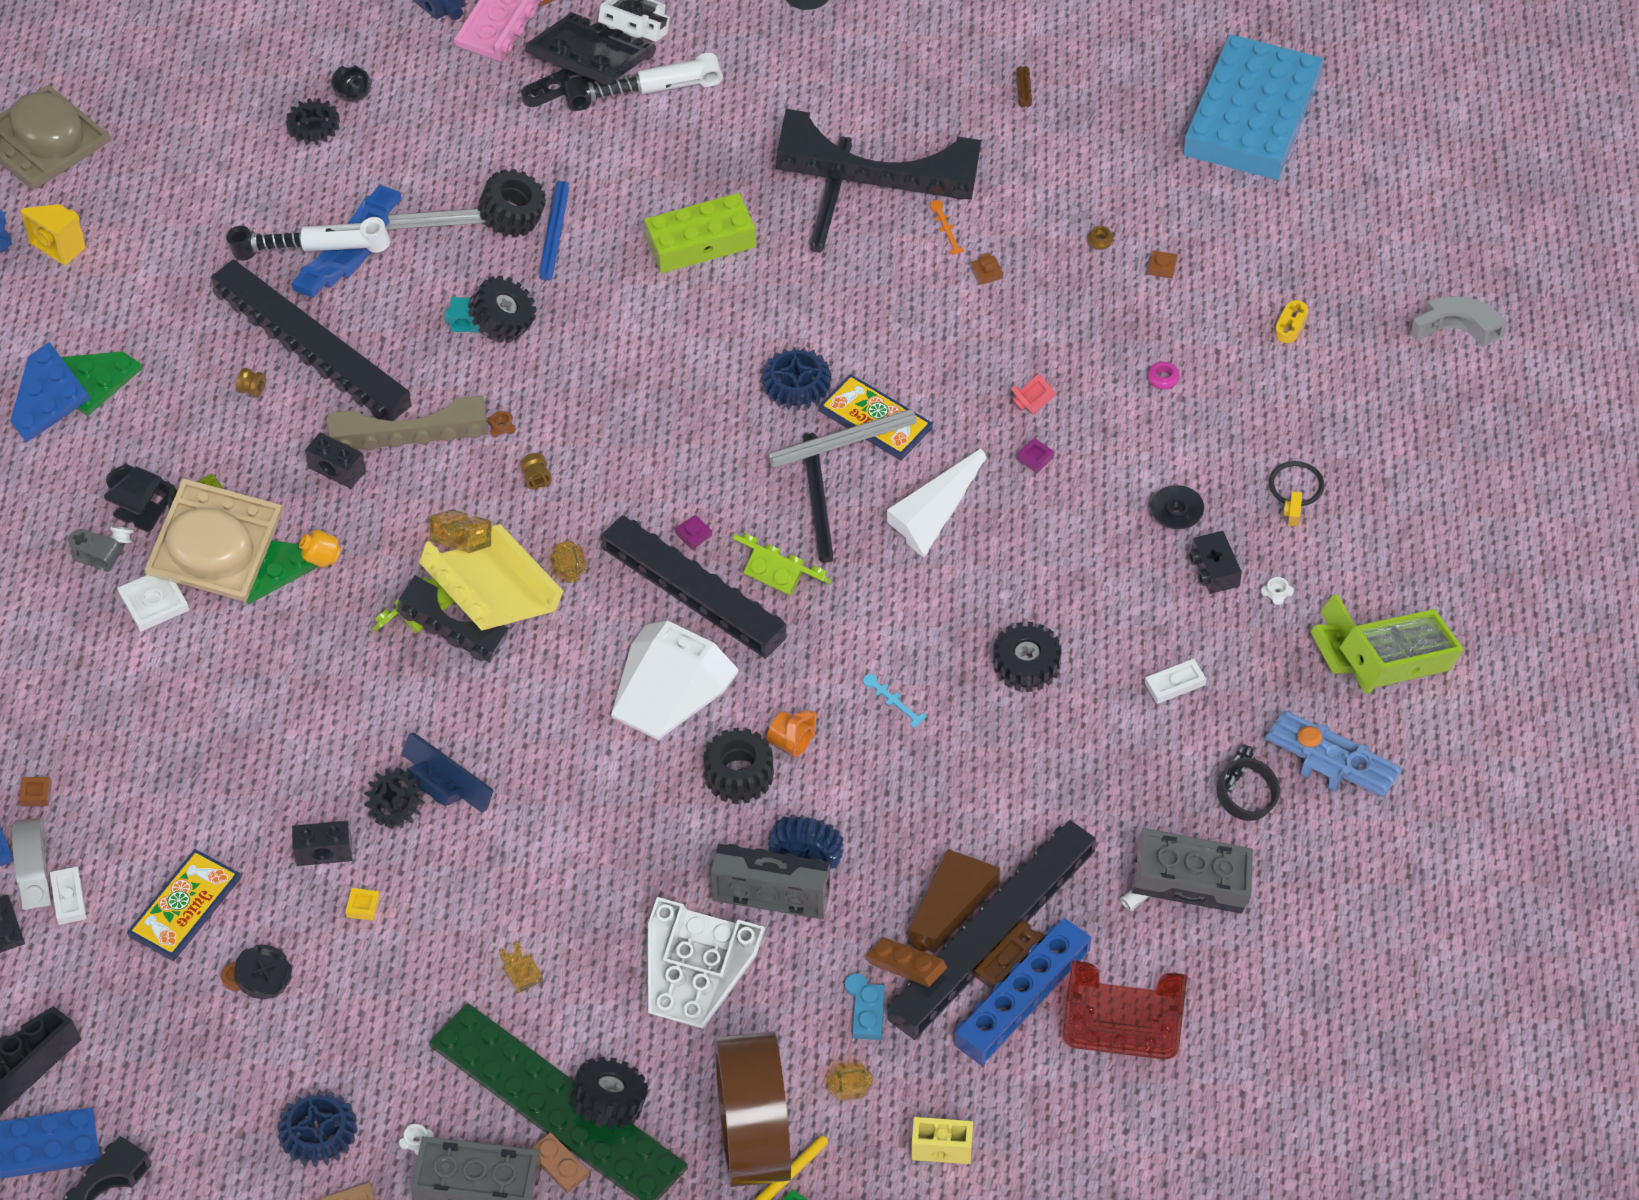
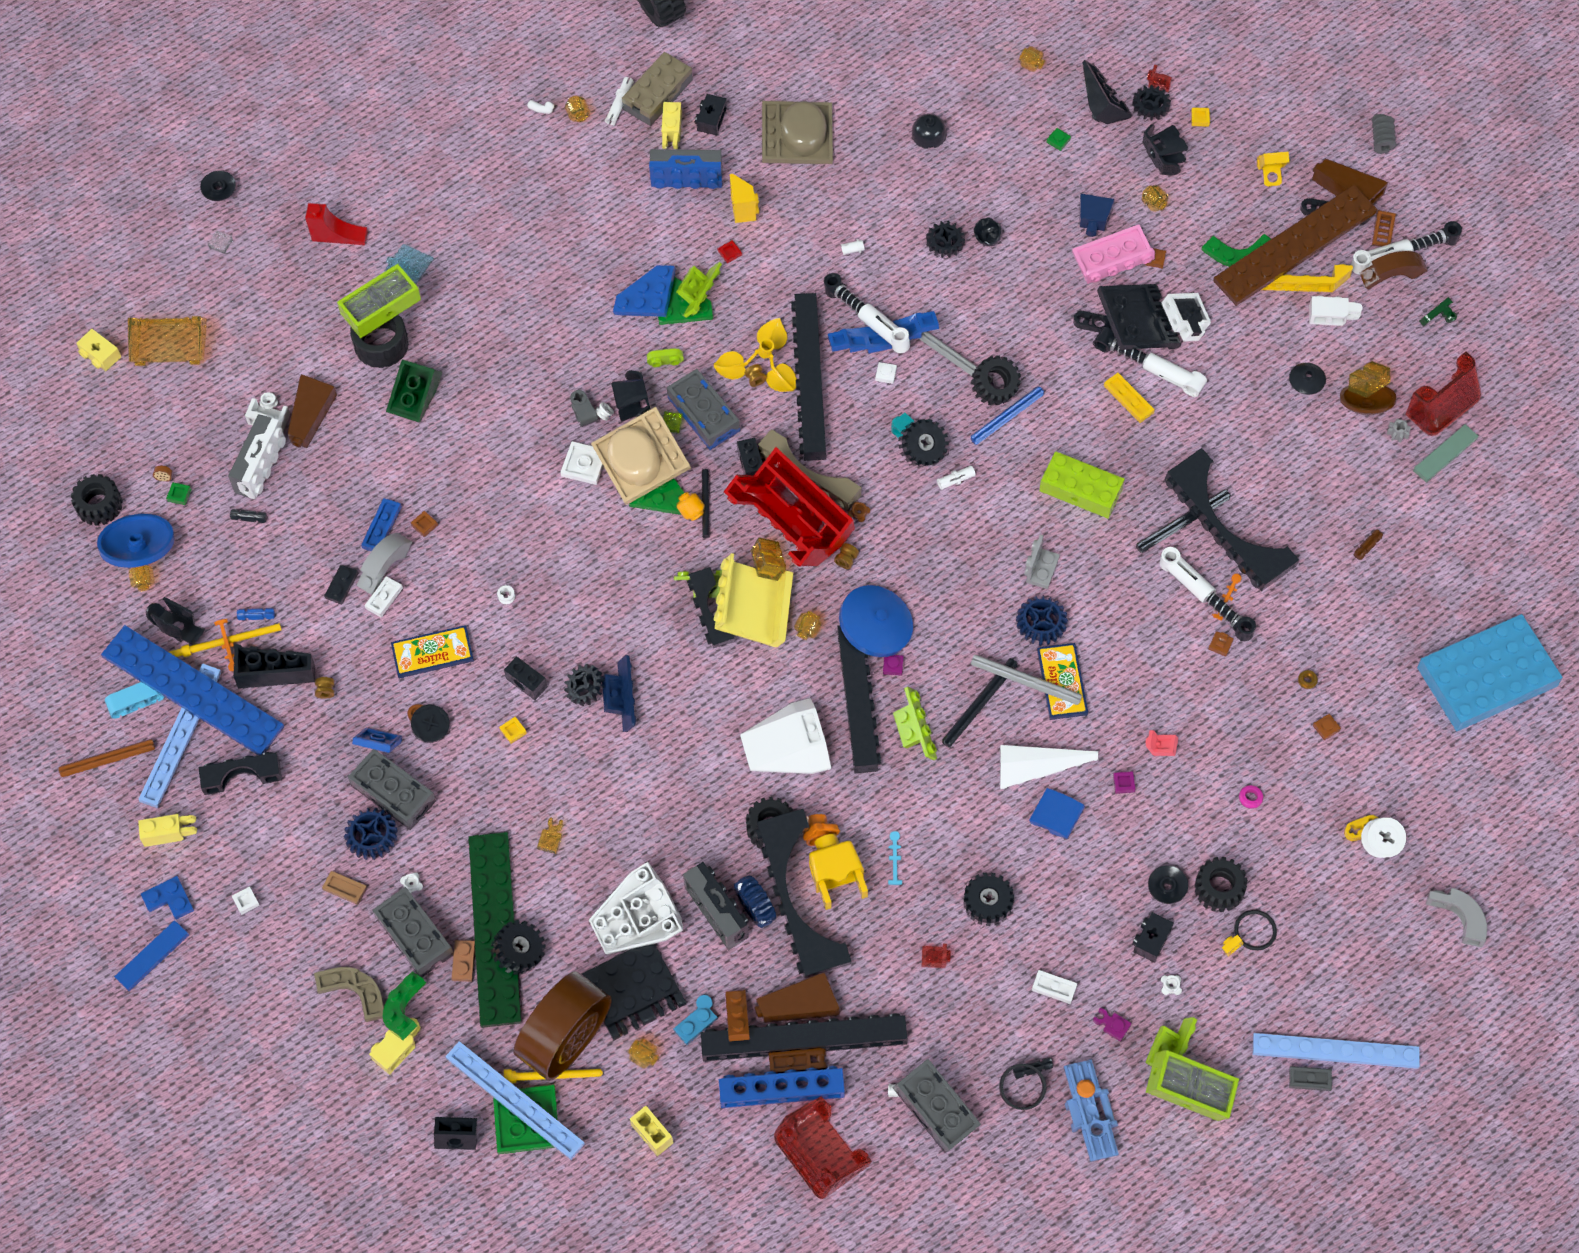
camera: 45 degrees right, 10 degrees up
(90, 294) = (729, 251): none -> red tile
(97, 345) = (695, 286): none -> lime bracket
(100, 1034) = (324, 687): none -> pearl gold wheel
(131, 436) = (663, 357): none -> lime plate
(183, 39) = (929, 131): none -> black cylinder
(208, 779) = (510, 599): none -> white bush
(221, 196) = (852, 247): none -> white pin
(223, 1030) = (377, 740): none -> blue tile
(227, 335) = (770, 337): none -> yellow plant
(231, 450) = (703, 409): none -> dark grey piece
(292, 1063) = (391, 789): none -> dark grey piece
(345, 551) = (705, 499): none -> black bar
(386, 283) = (886, 373): none -> white plate
(446, 457) = (796, 518): none -> red wedge
(565, 320) = (946, 481): none -> white pin
(635, 501) = (876, 621): none -> blue dish
(657, 127) = (1129, 397): none -> yellow plate
(740, 330) = (1040, 565): none -> light grey bracket
(768, 1006) = (635, 983): none -> black hinge
(848, 748) = (835, 866): none -> yellow piece
(864, 234) = (1205, 592): none -> piece
(909, 841) = (813, 951): none -> black arch
(1003, 532) = (1057, 813): none -> blue slope
(1034, 749) = (935, 956): none -> clear red bracket
(1225, 482) = (1215, 898): none -> black tyre
(1266, 667) = (1114, 1026): none -> magenta plate
(1321, 310) = (1393, 833): none -> white piece
(1481, 523) = (1336, 1050): none -> light blue plate
(1488, 563) = (1310, 1078): none -> dark grey plate

